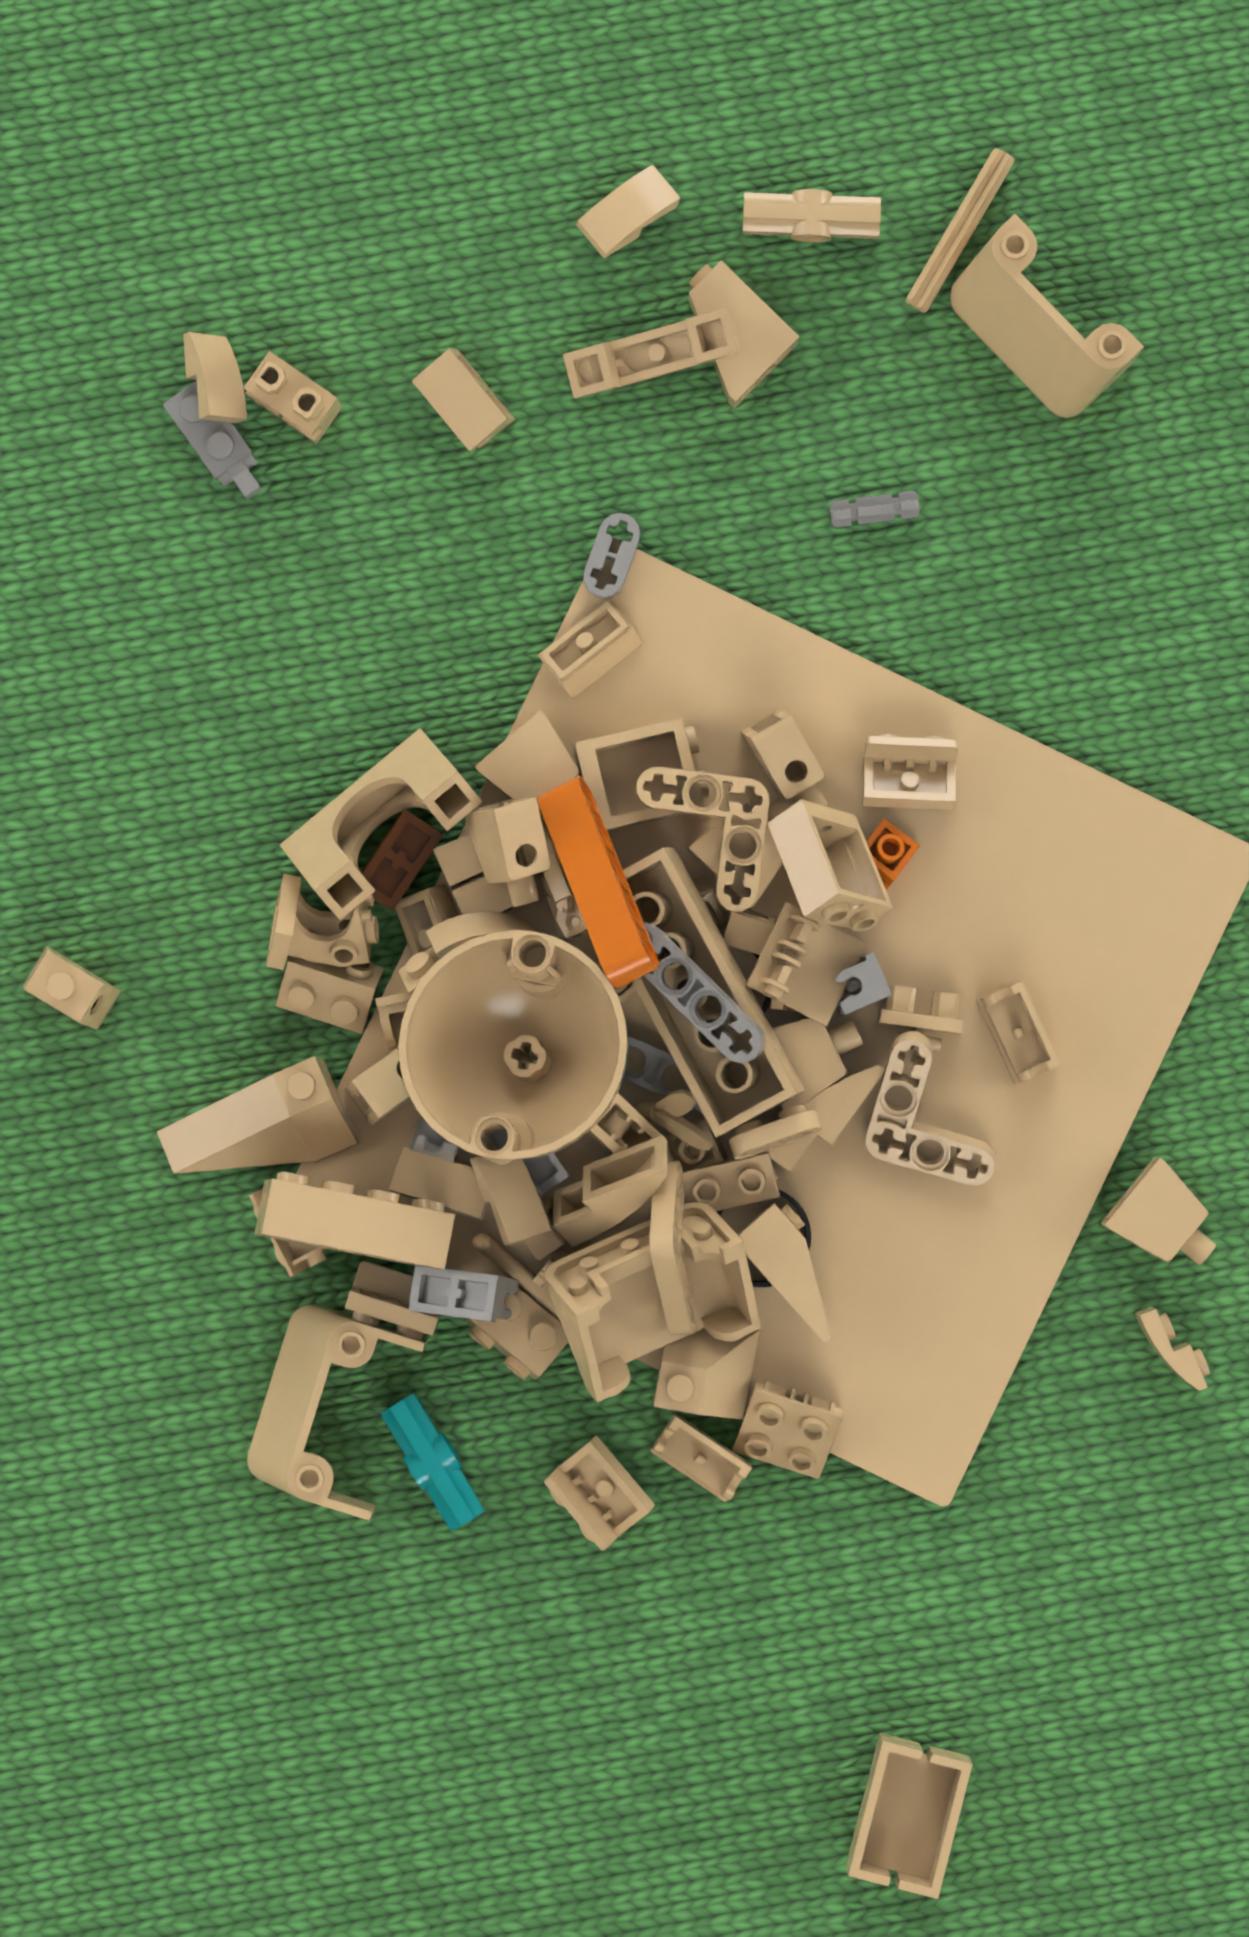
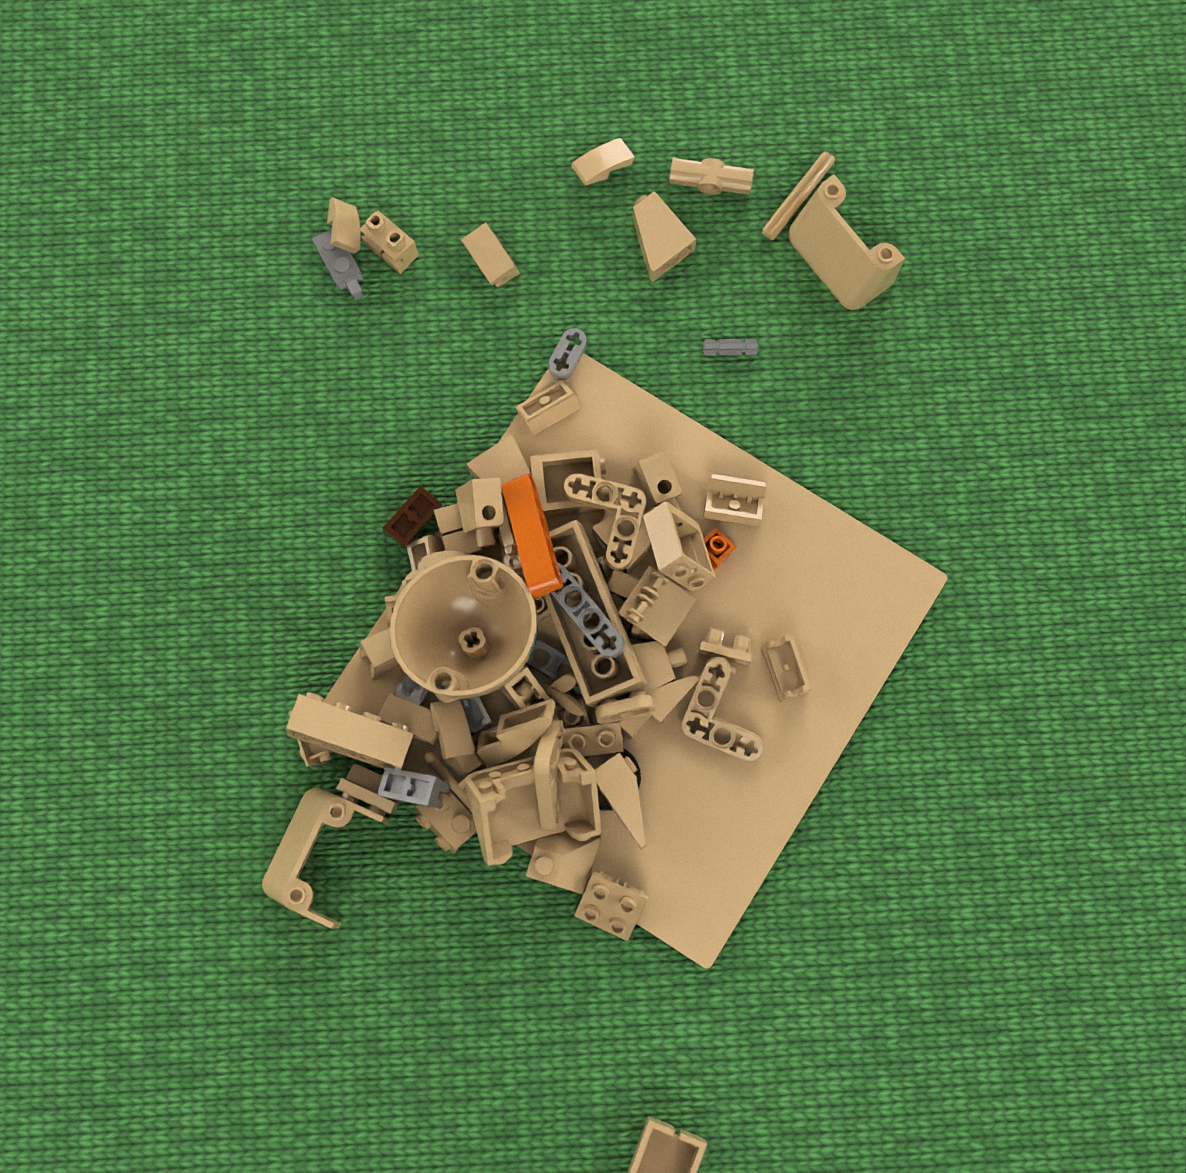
camera: 10 degrees right, 10 degrees down
(71, 988) = (198, 571): tan torso -> none
(269, 1123) = (314, 665): tan wedge -> none
(319, 934) = (357, 557): tan tile -> none
(330, 992) = (359, 590): tan bracket -> none
(331, 840) = (428, 469): tan arch -> none
(432, 1461) = (380, 898): teal piece -> none
(598, 1493) = (484, 931): tan bracket -> none
(652, 353) = (607, 242): tan slope -> none
(701, 1458) = (552, 917): tan hinge -> none
(868, 982) = (693, 626): light grey hinge -> none
(1161, 1215) = (865, 796): tan torso -> none
(1181, 1358) = (870, 891): tan slope -> none

